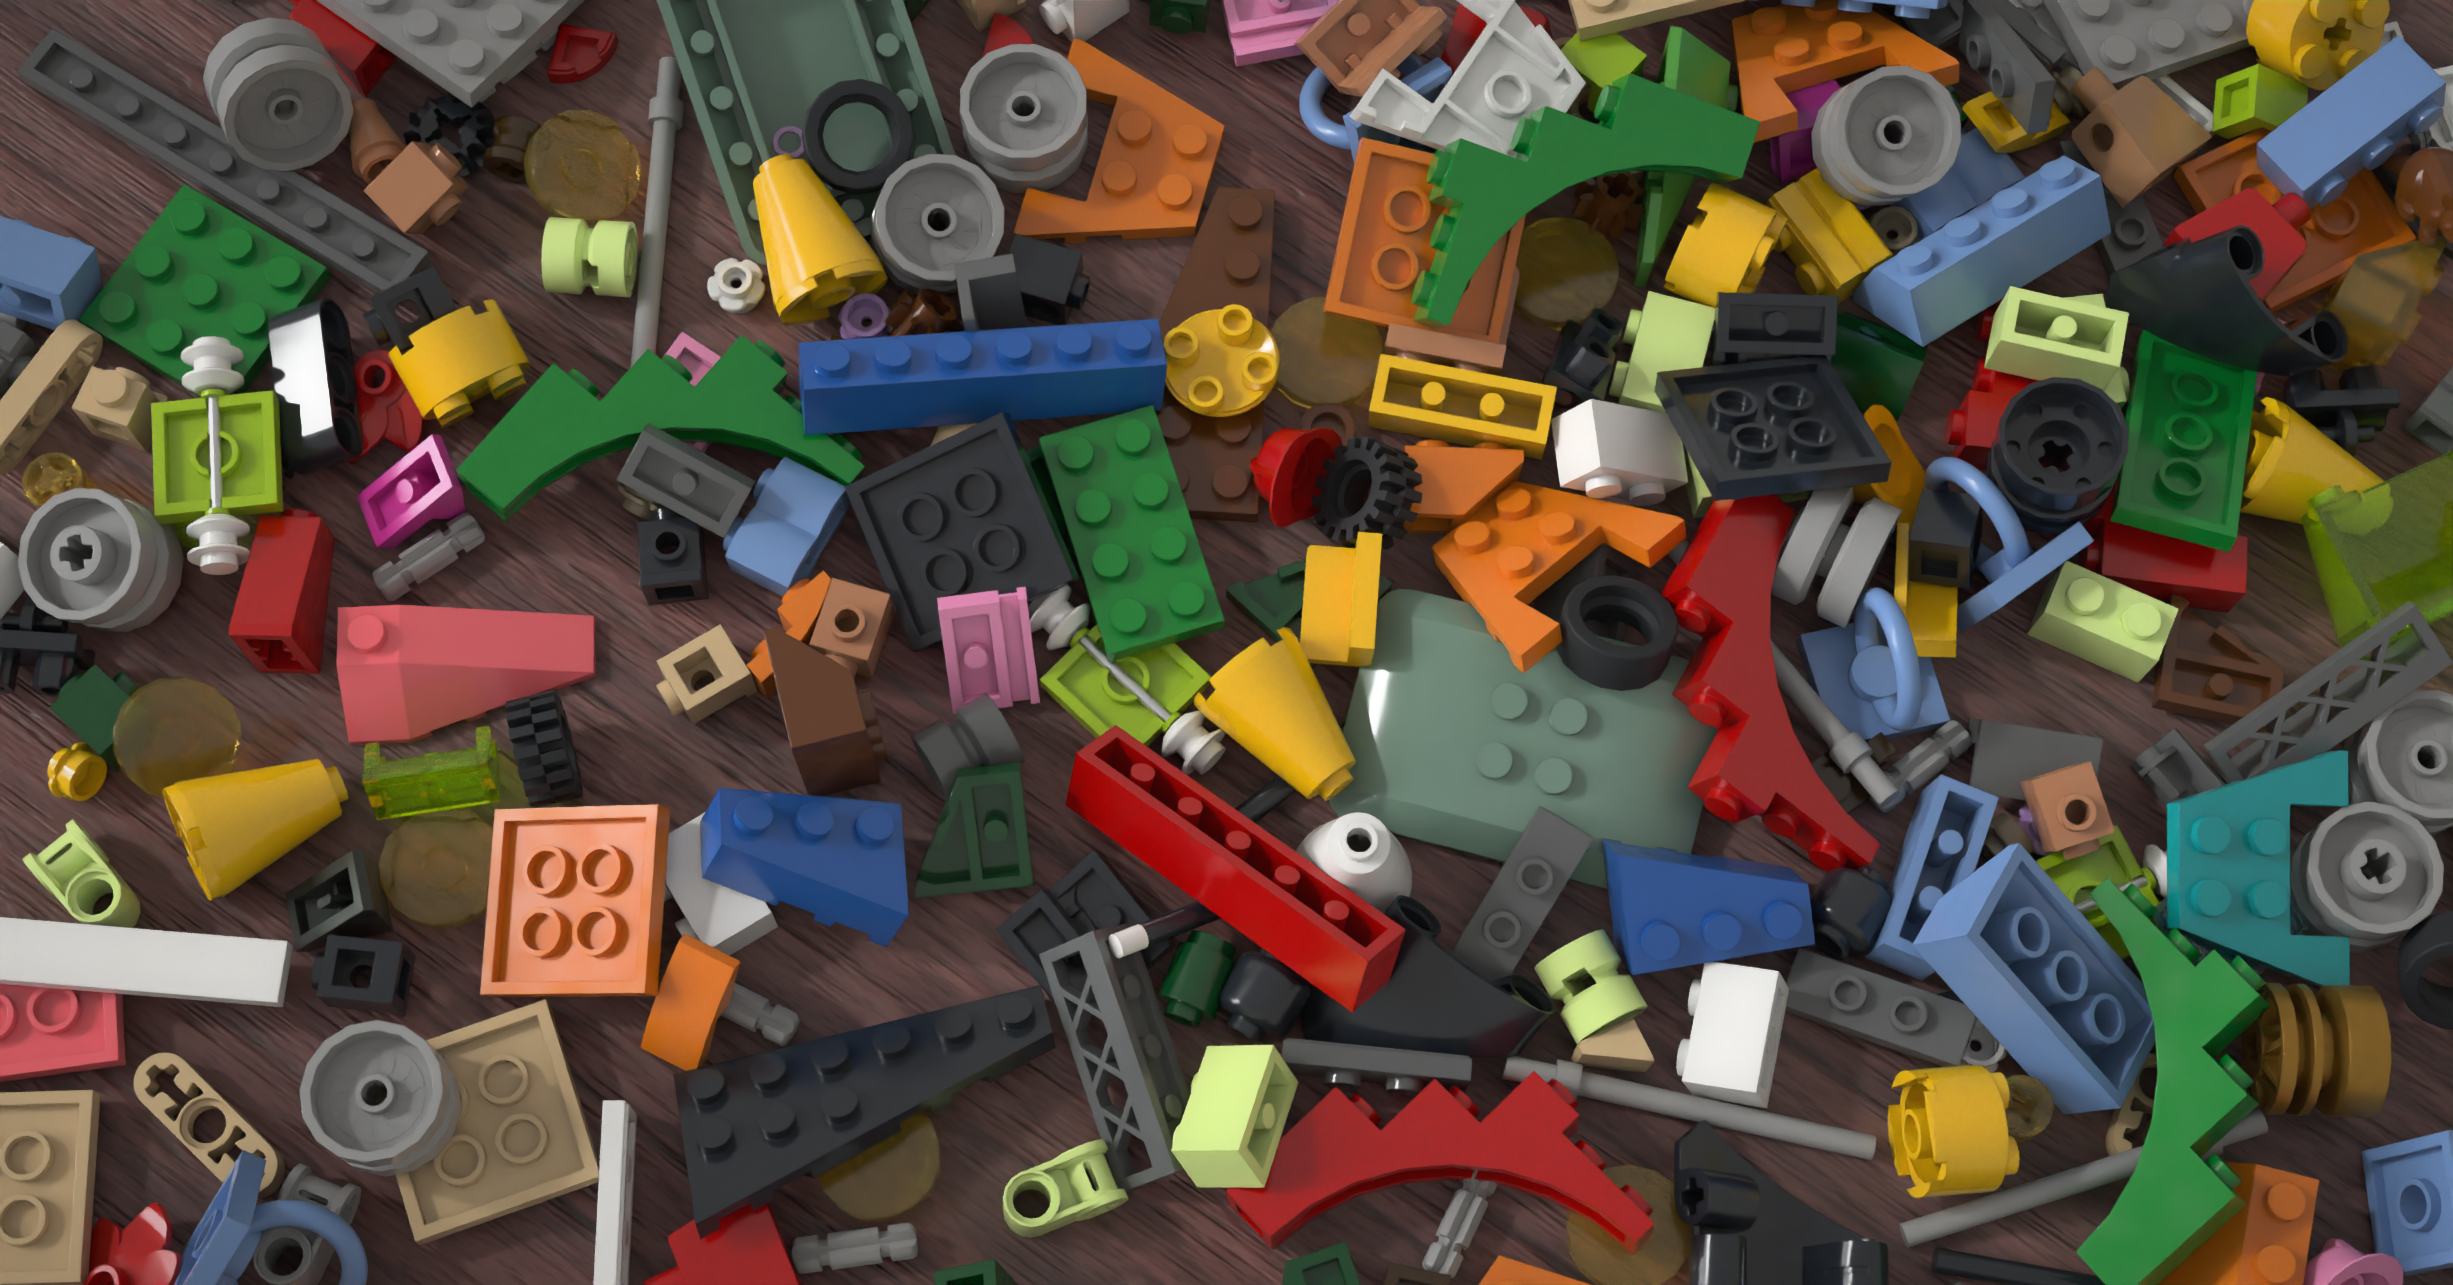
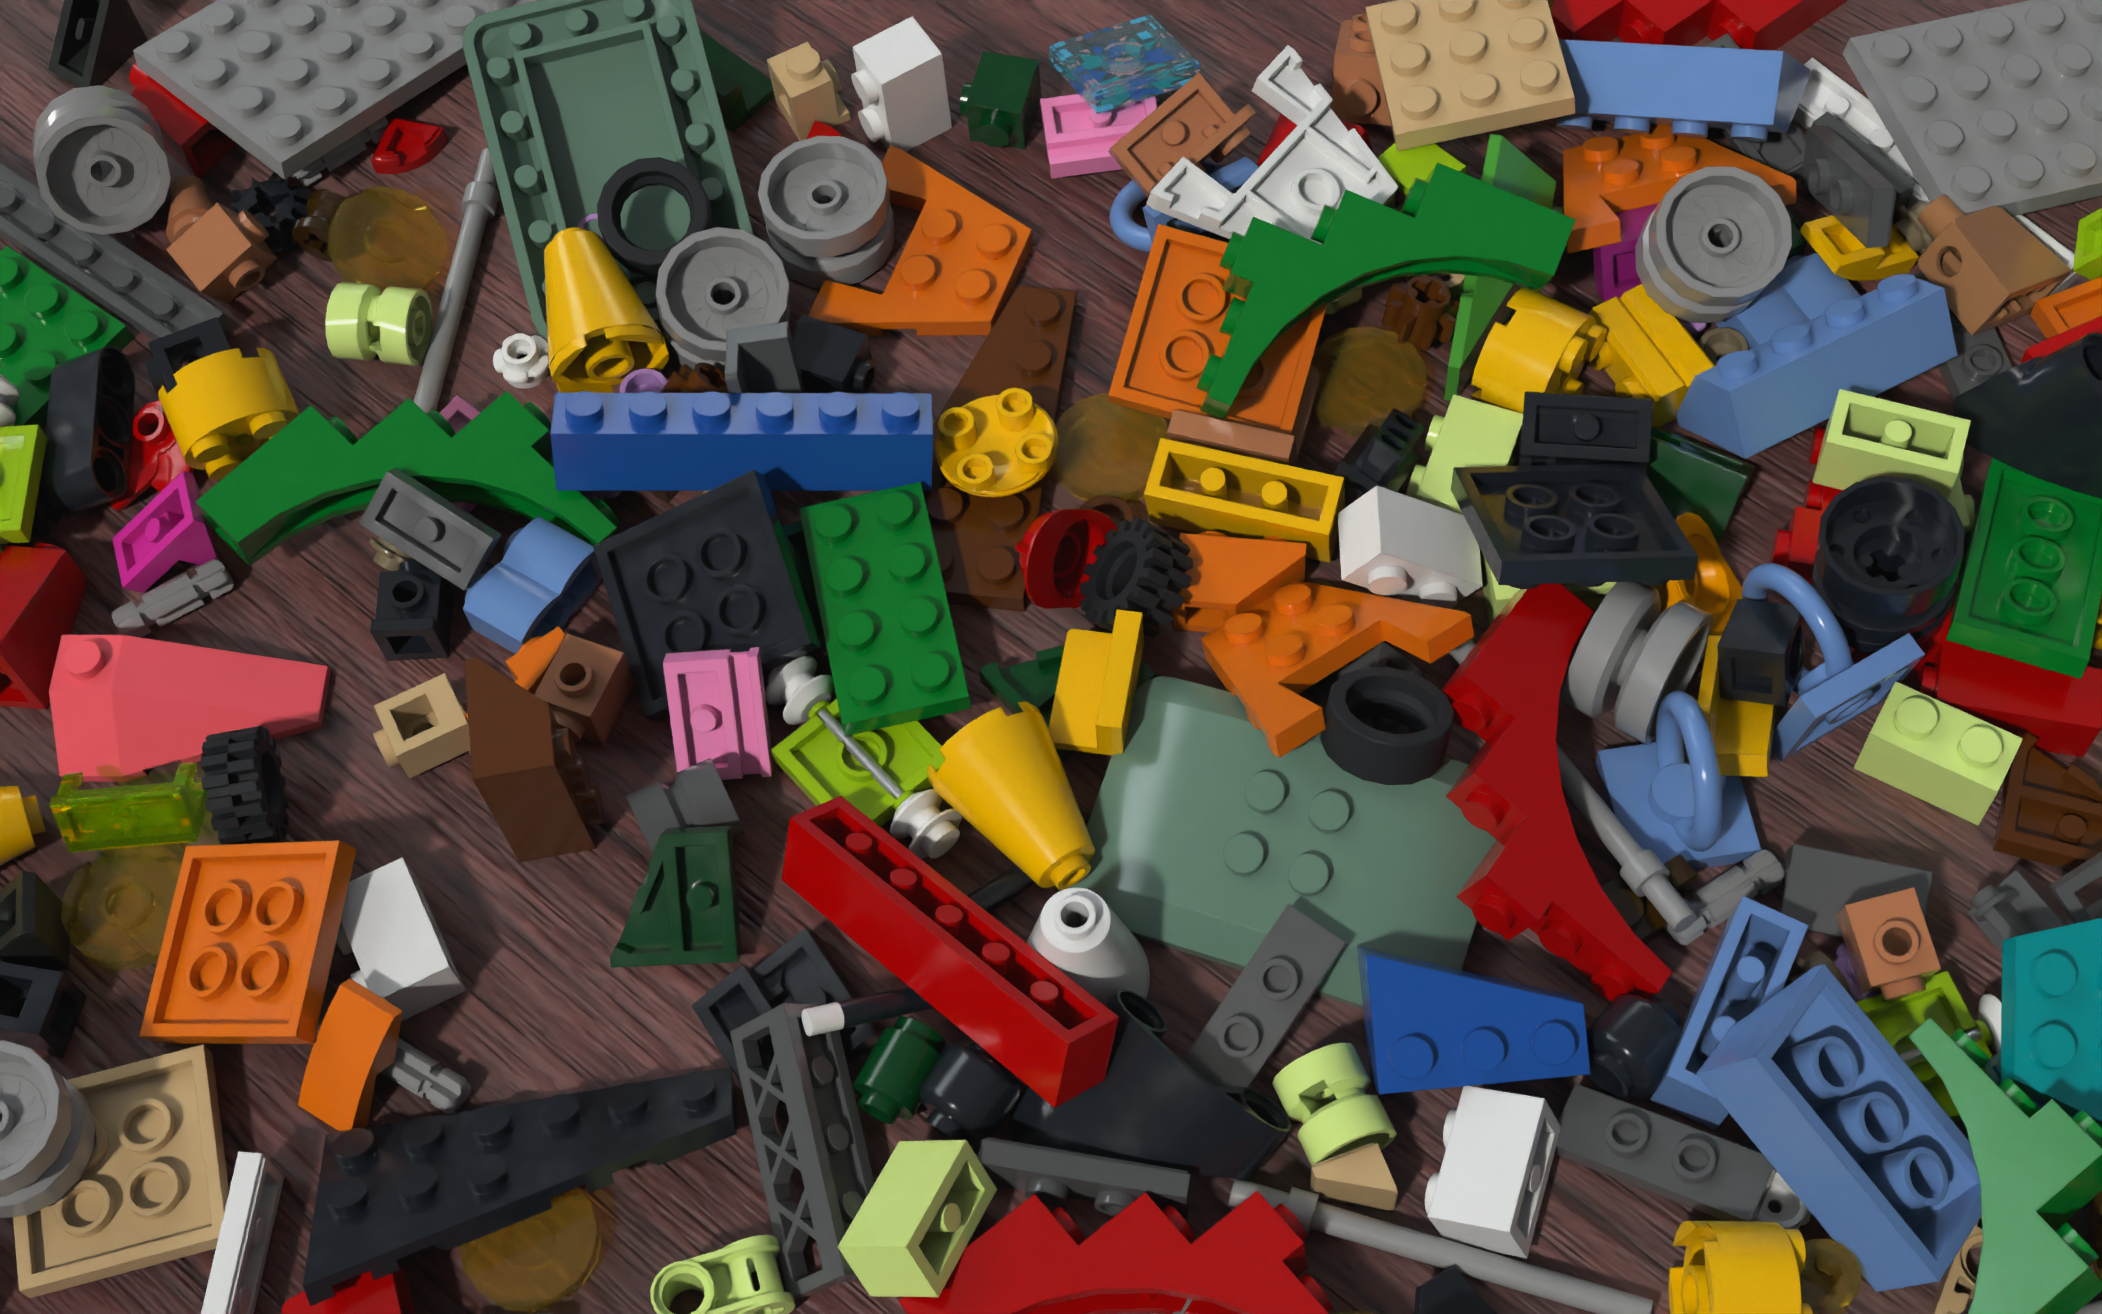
camera: 15 degrees right, 10 degrees down
(812, 853) = (498, 905): blue wedge -> none

